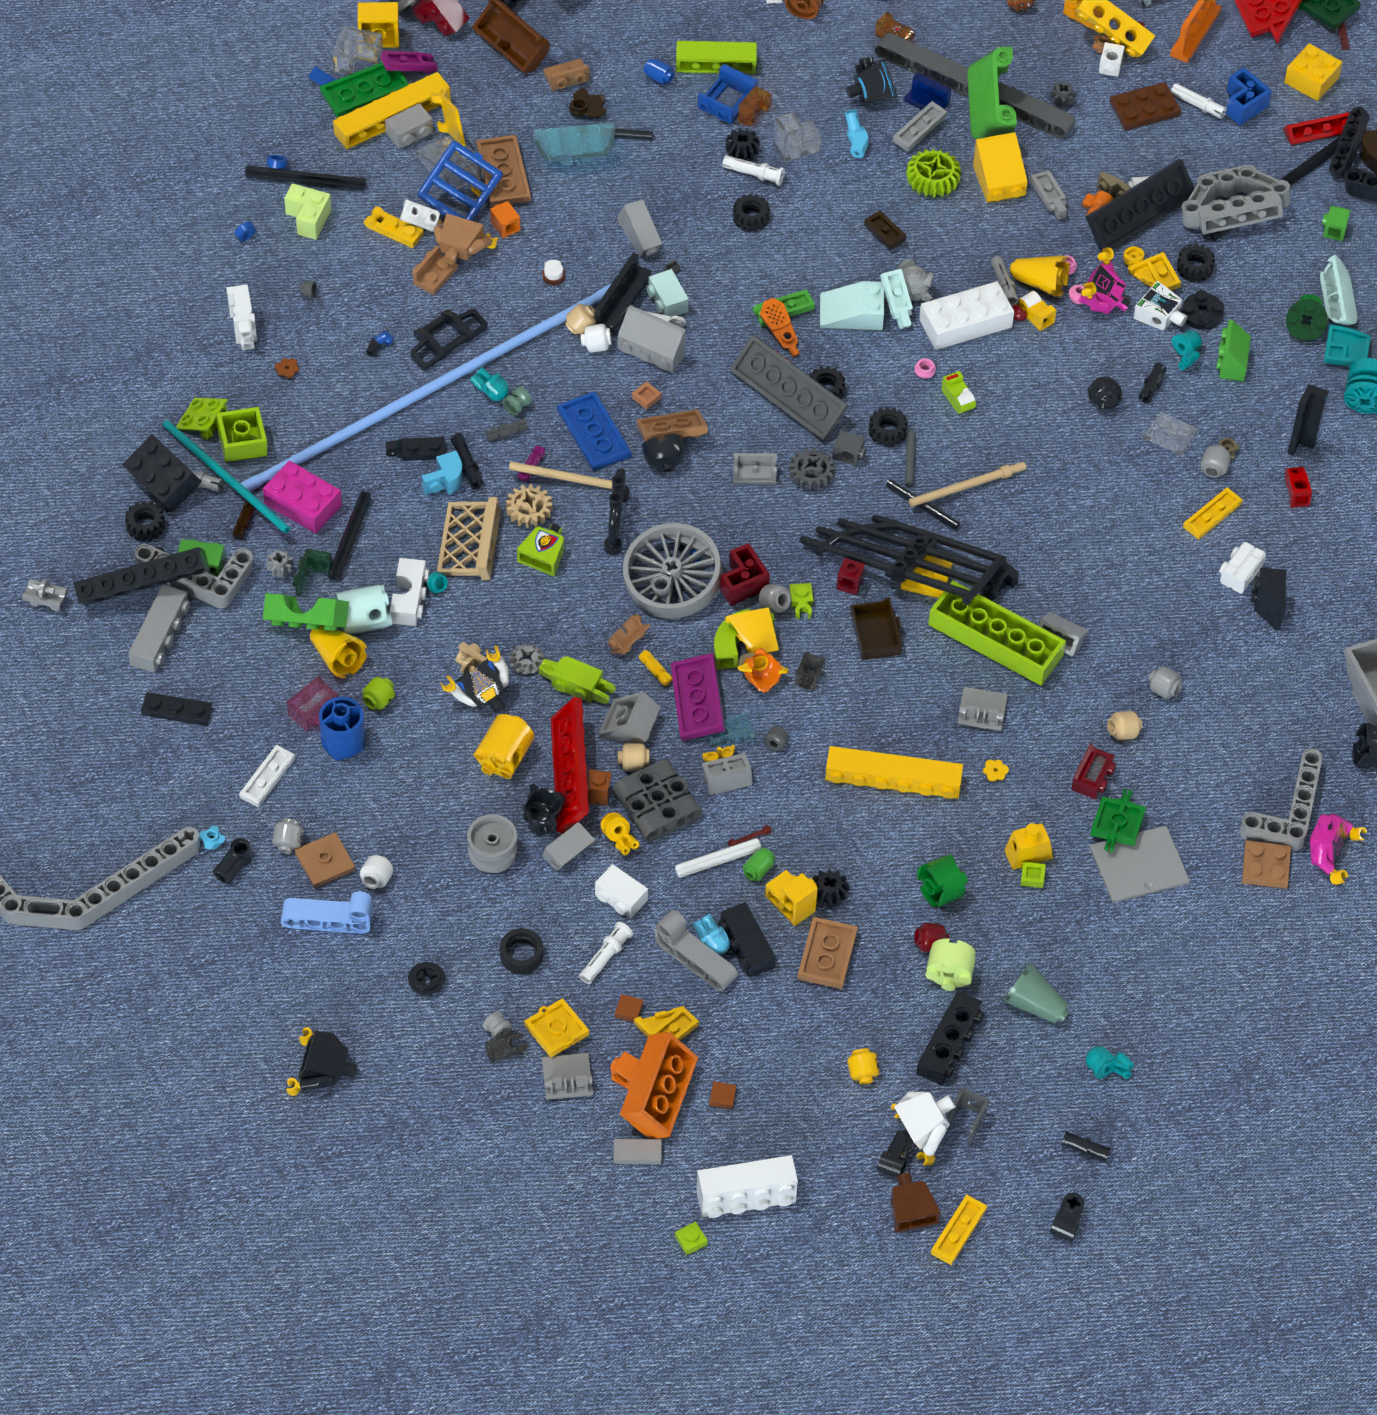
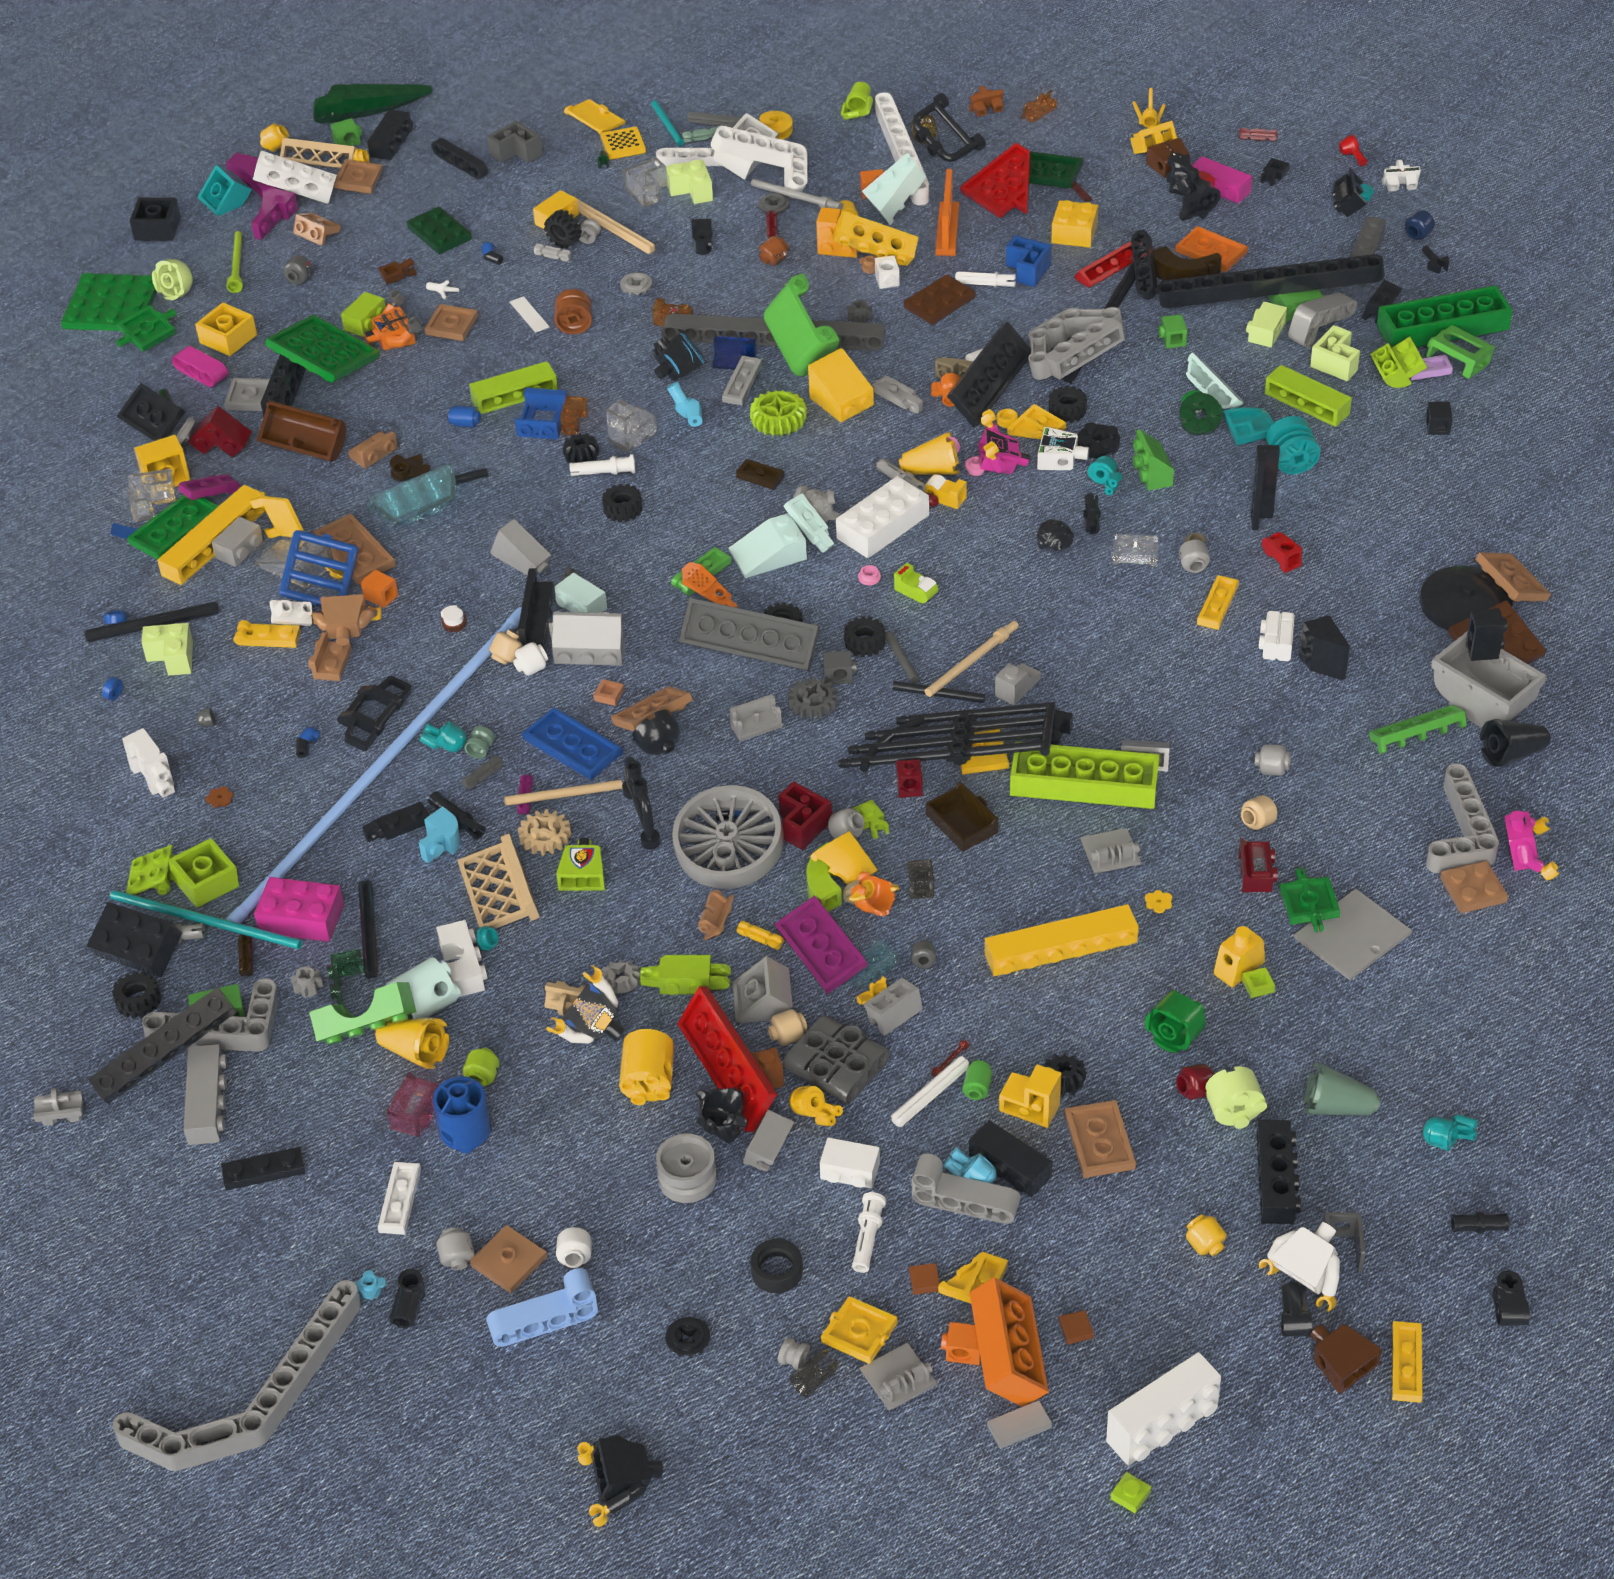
camera: 20 degrees left, 10 degrees down
(991, 521) = (1015, 682): none -> light grey arch
(1311, 700) = (1417, 726): none -> bright green hinge

